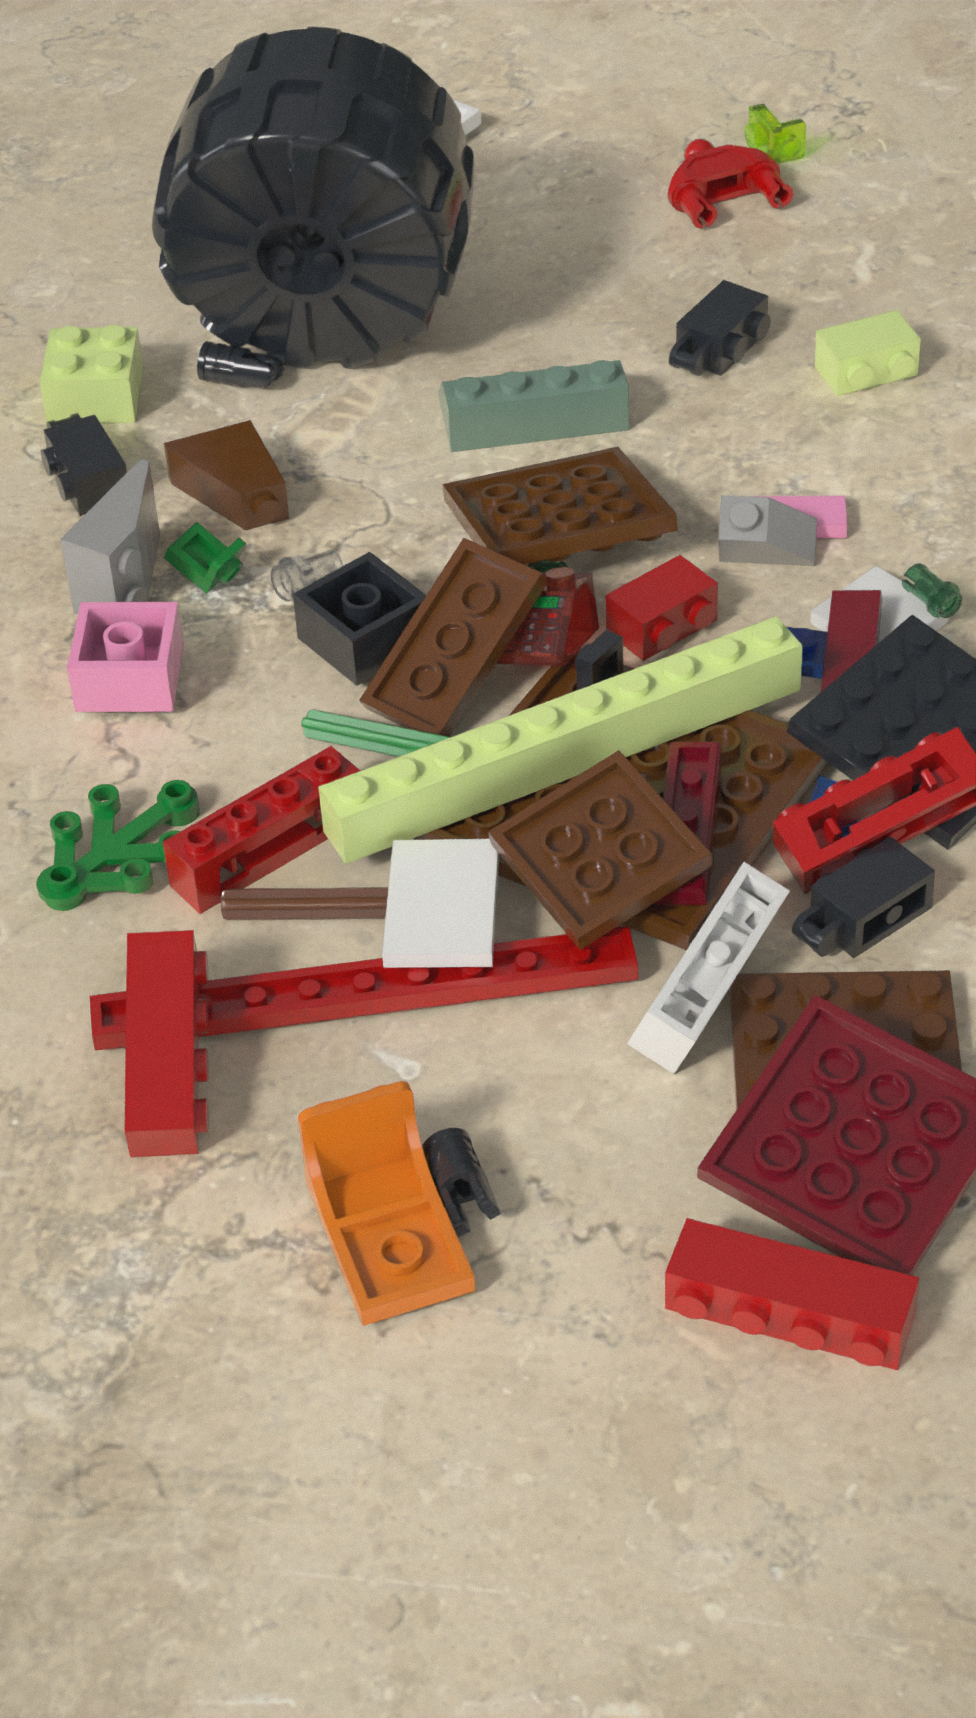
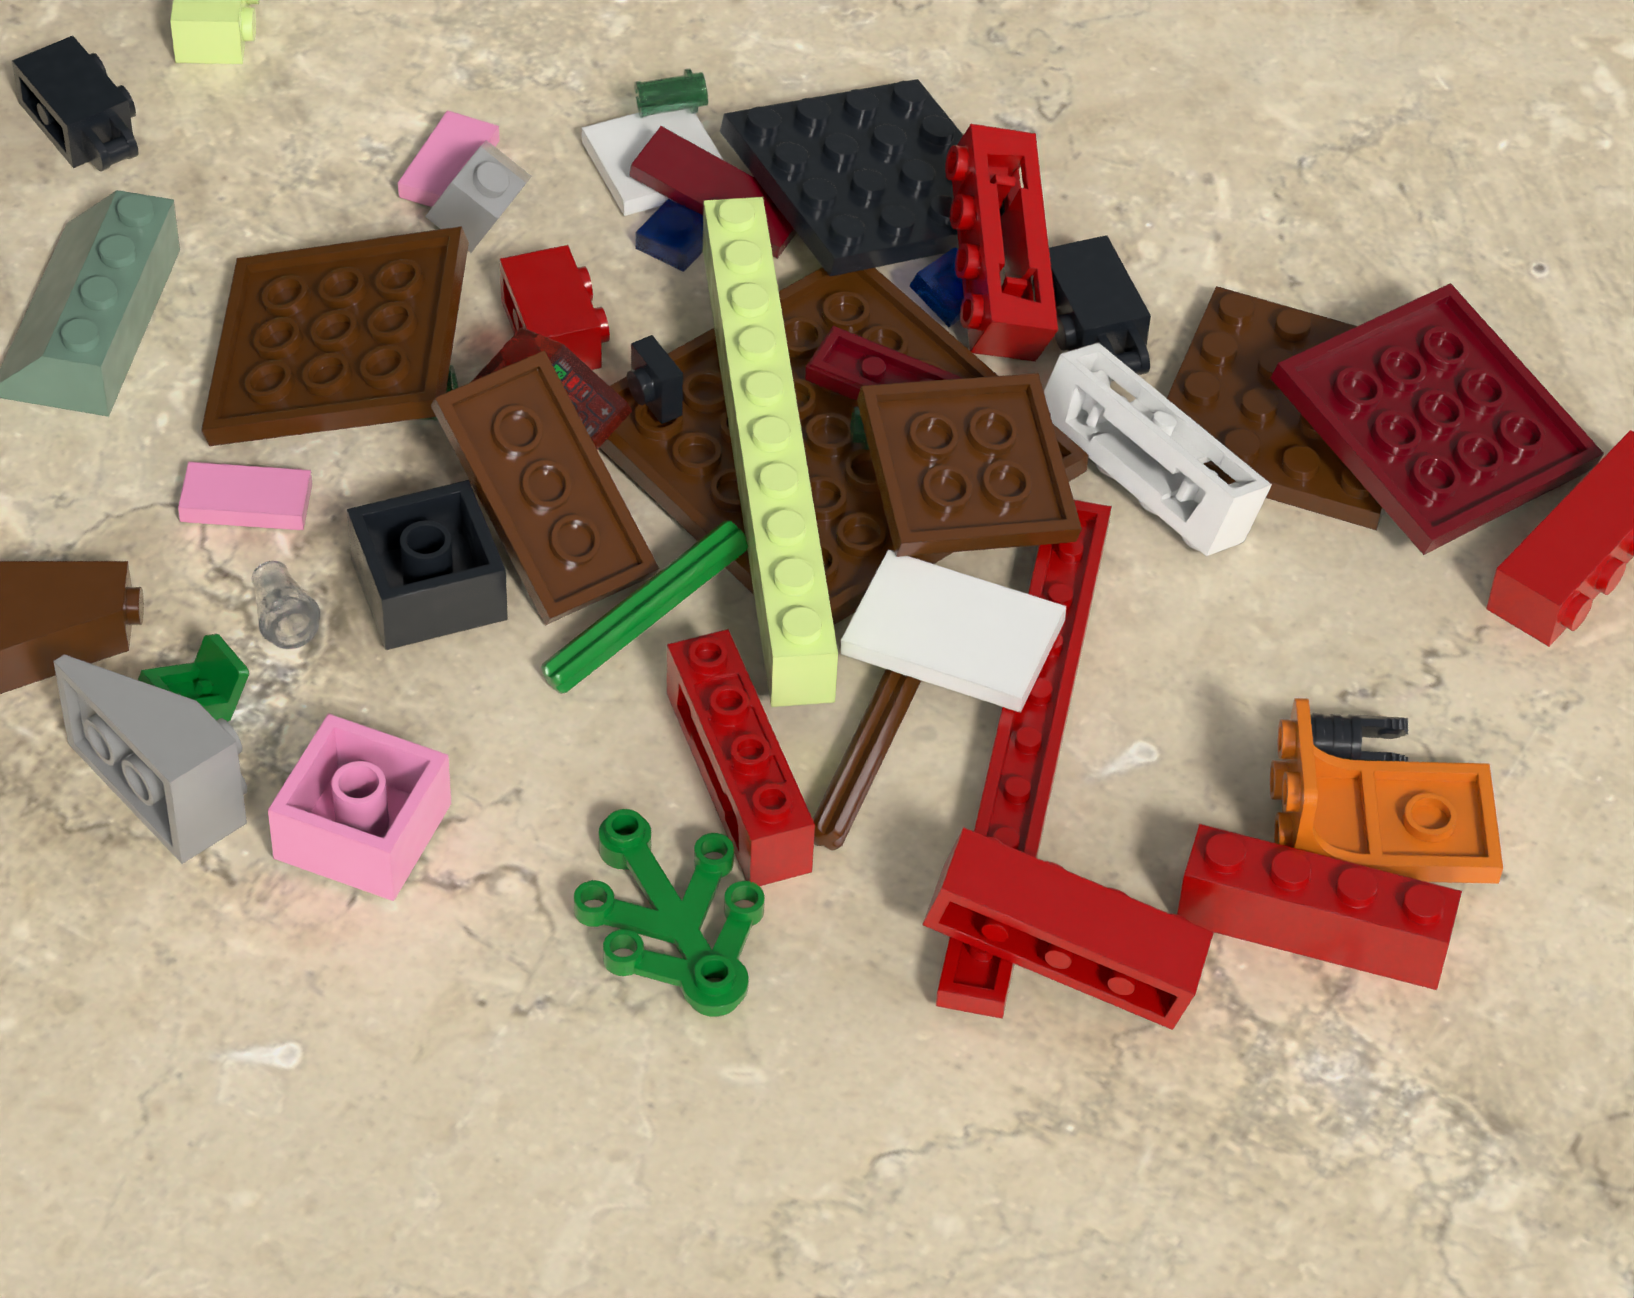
camera: 75 degrees left, 5 degrees up
(264, 1201) = (1318, 906): none -> red brick
(404, 530) = (245, 496): none -> bright pink tile

